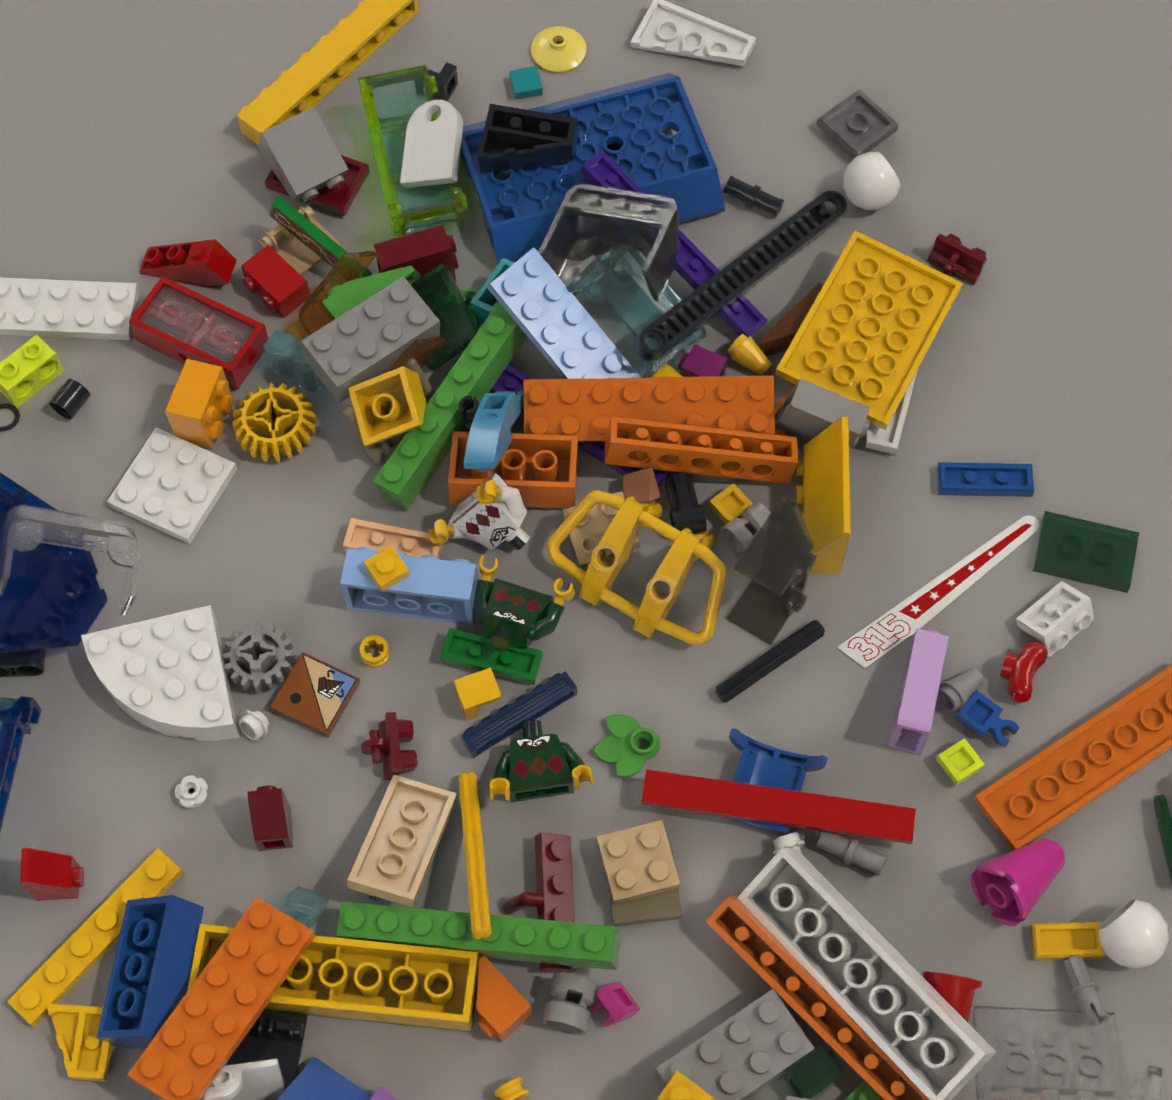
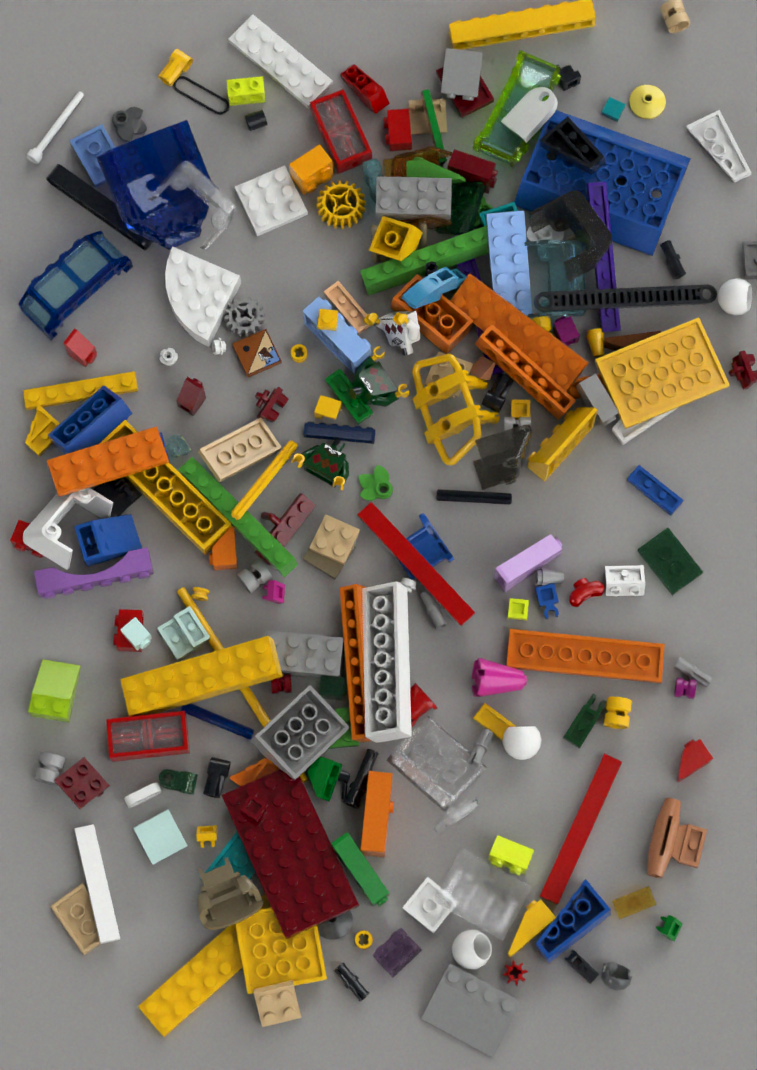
camera: 40 degrees right, 10 degrees up
(933, 597) = (581, 526): sticker -> none

